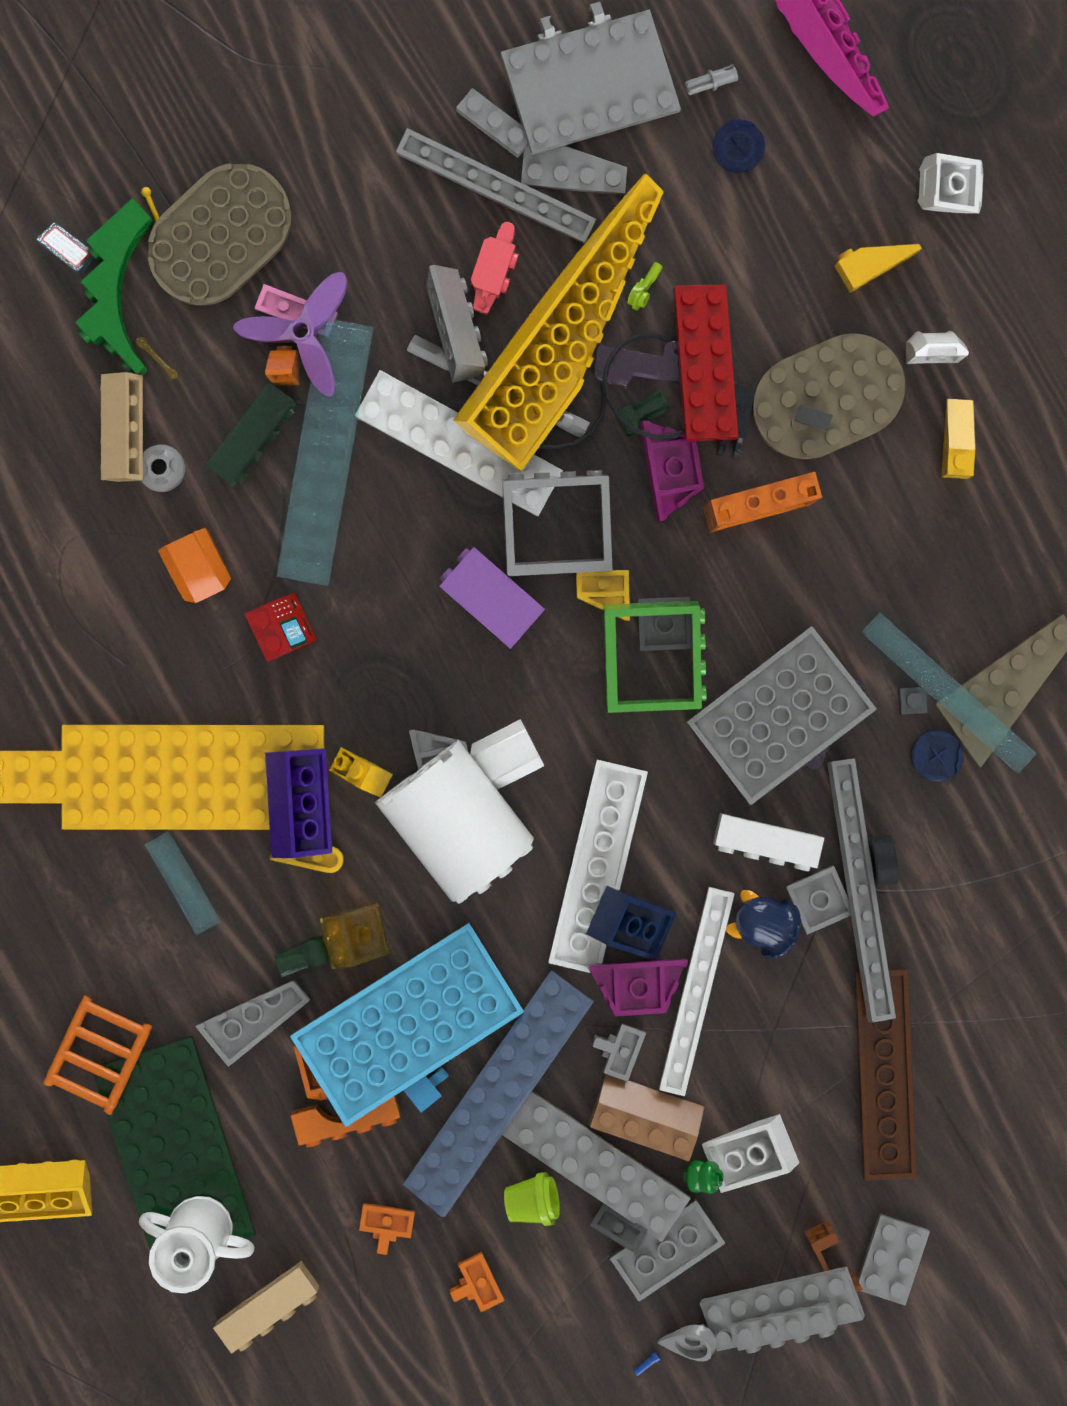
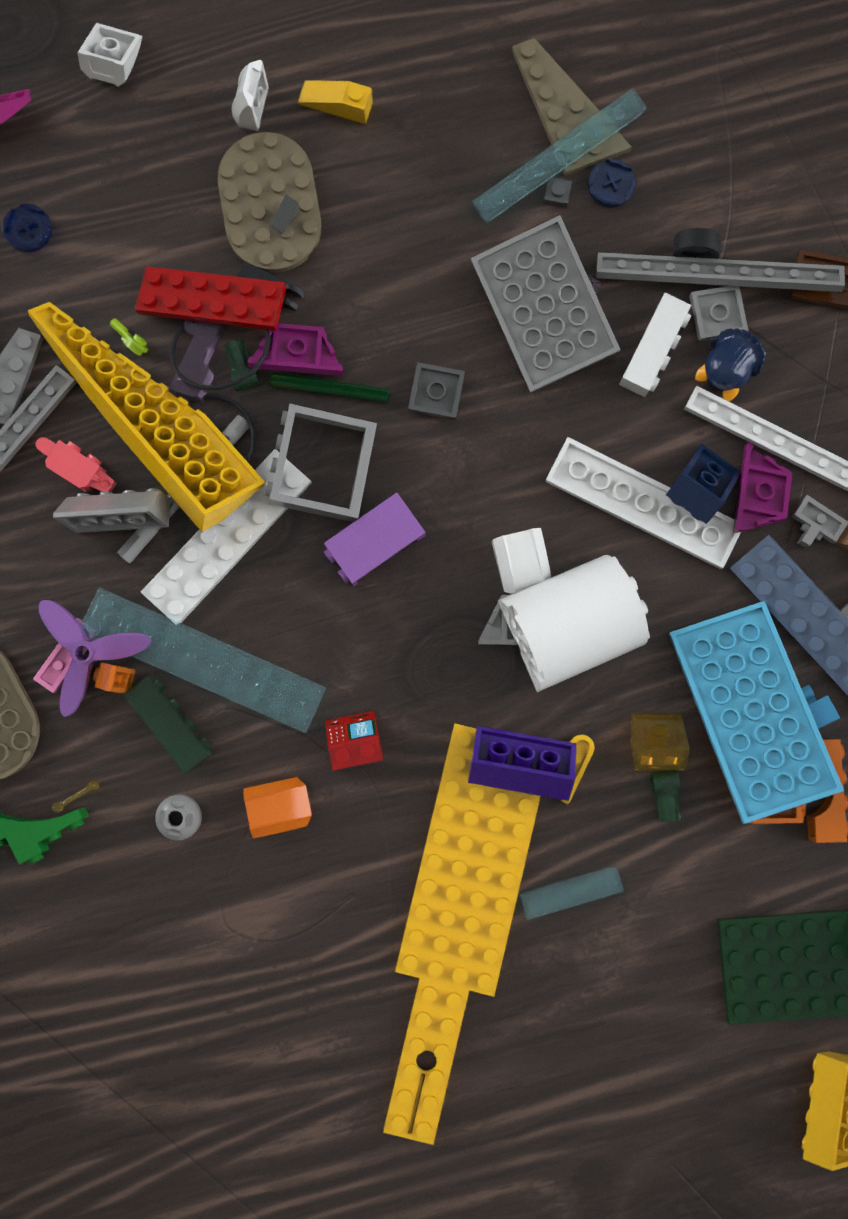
camera: 75 degrees left, 5 degrees down
(121, 427) = (129, 844): tan brick -> none
(131, 1055) = (710, 1047): orange bar -> none
(247, 1024) = (718, 862): light grey wing -> none
(361, 772) = (506, 699): yellow slope -> none
(603, 588) = (394, 436): yellow wing -> none
(642, 511) = (329, 387): none -> dark green axle
(698, 665) = (453, 442): bright green window -> none
(762, 502) = (347, 270): orange window -> none
(870, 262) = (160, 137): yellow slope -> none

